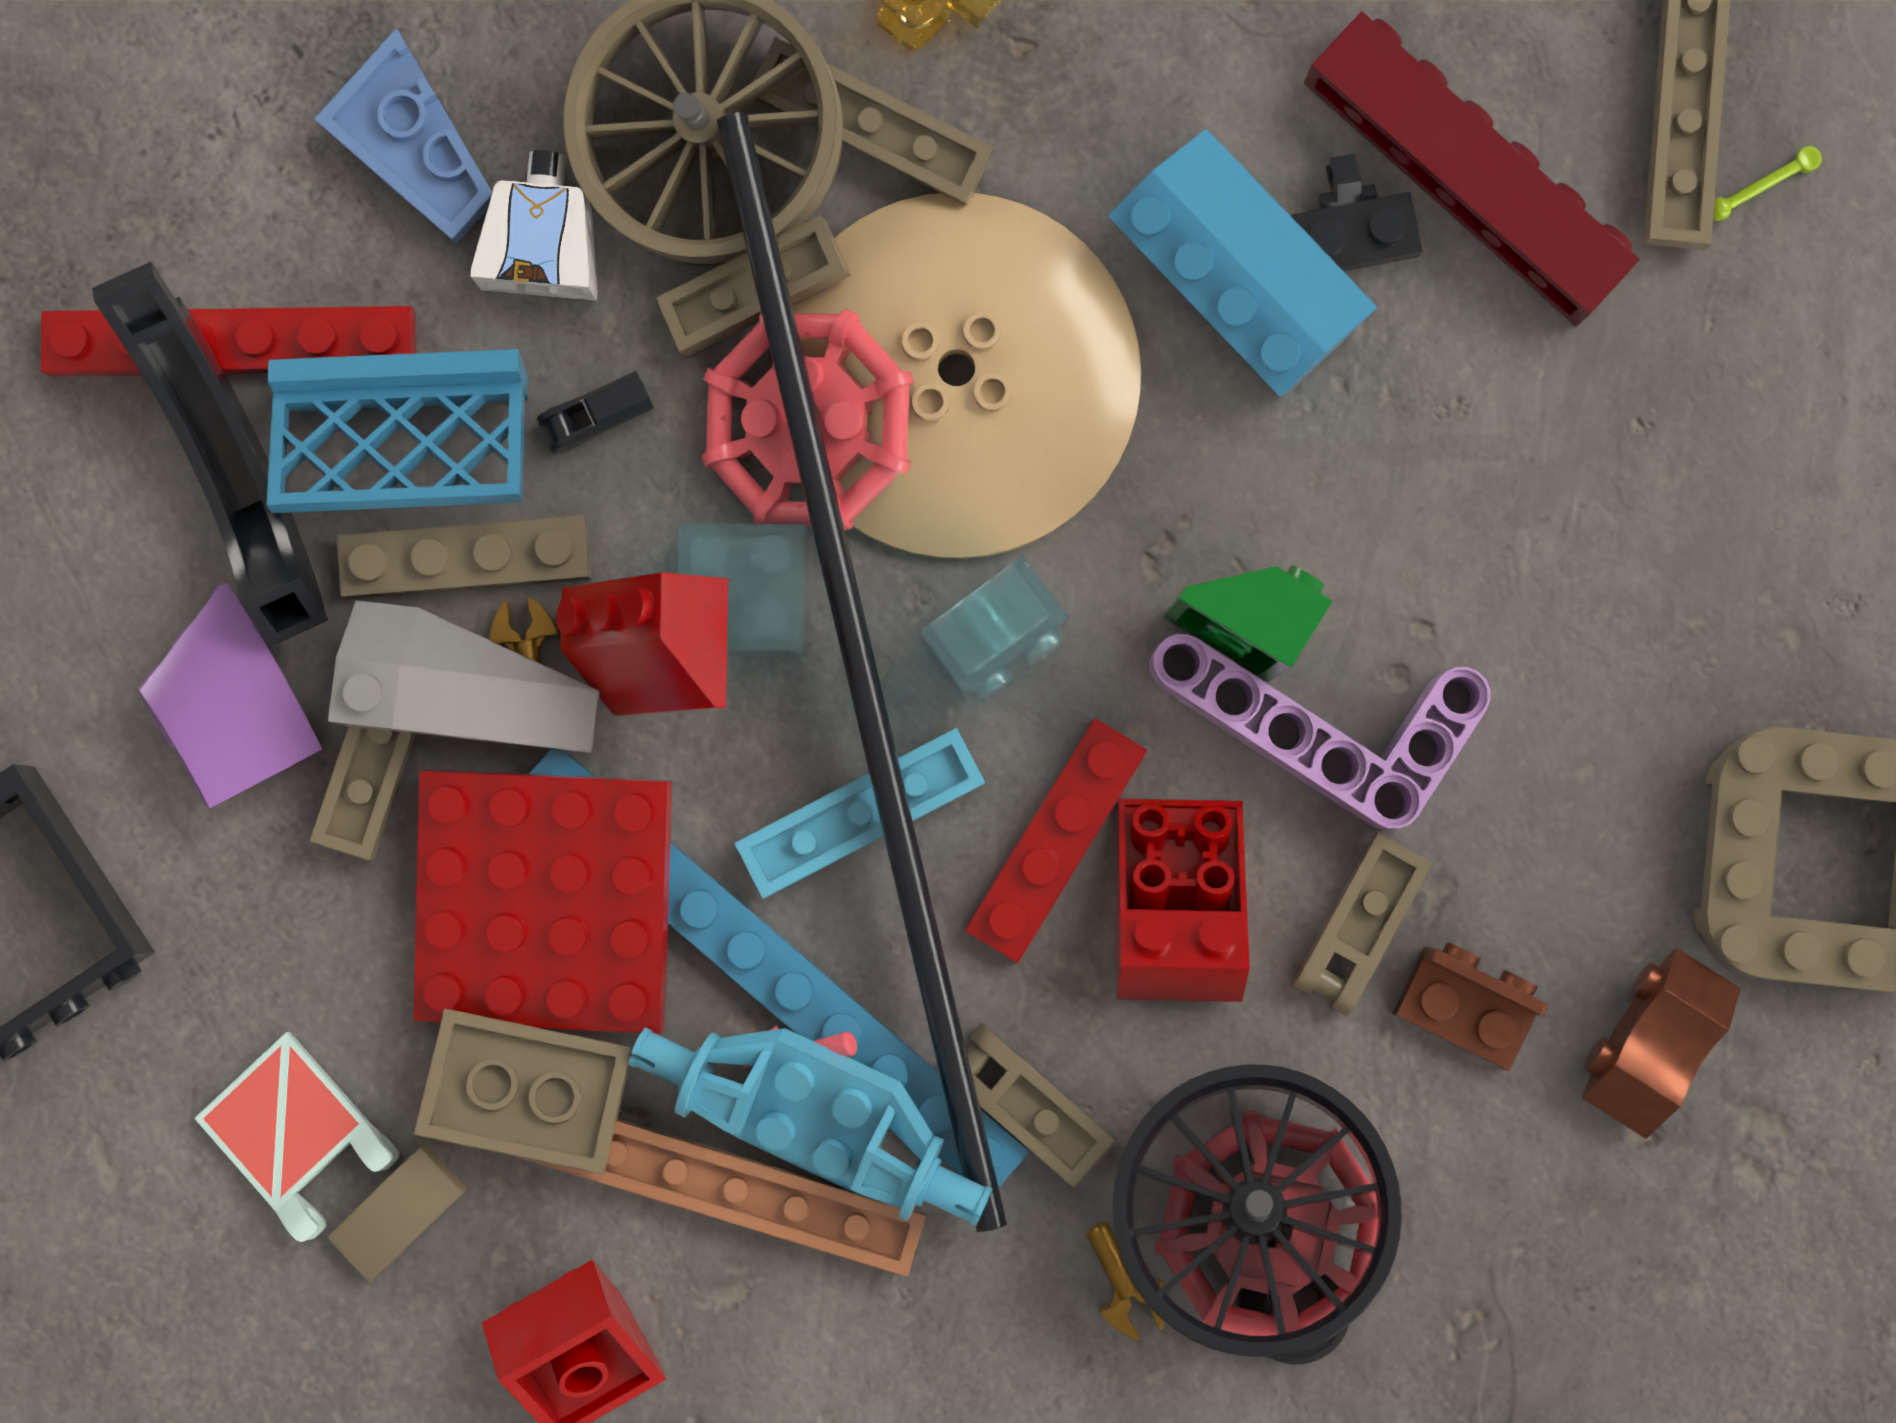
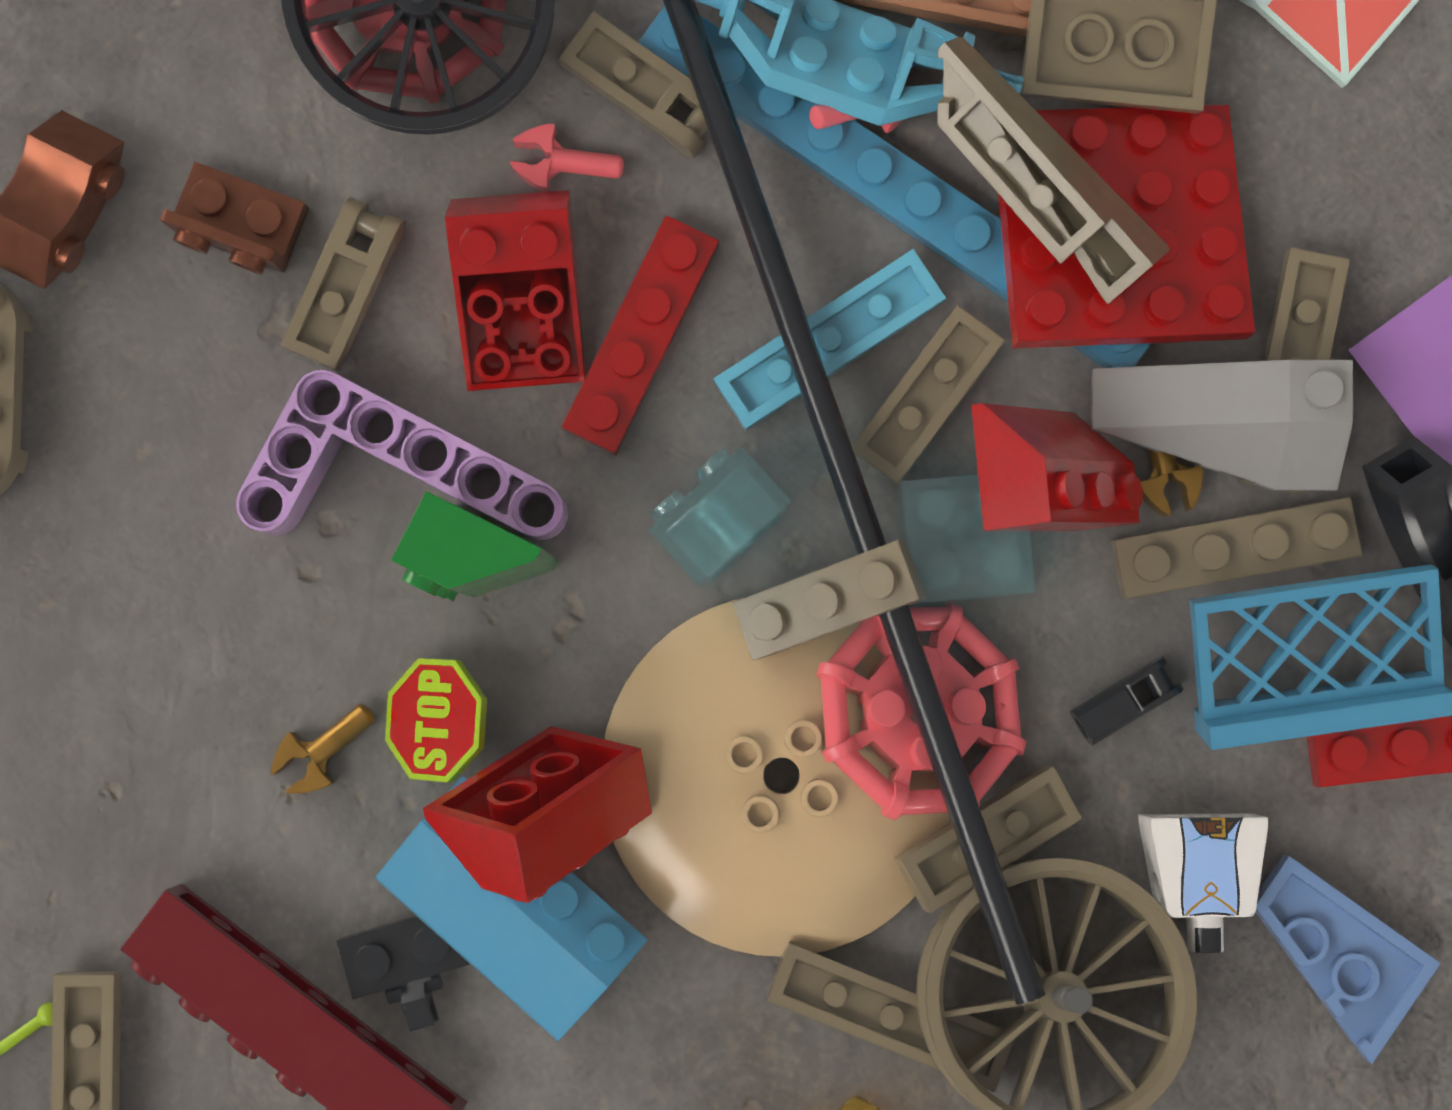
camera: 175 degrees right, 0 degrees up
(621, 949) = (1042, 174): none -> dark tan wedge
(764, 745) = (927, 395): none -> dark tan plate
(890, 534) = (829, 599): none -> dark tan plate
(1119, 1035) = (561, 159): none -> coral bar
(1202, 351) = (542, 811): none -> red slope
(1303, 460) = (436, 720): none -> piece
(1423, 445) = (320, 749): none -> pearl gold bar

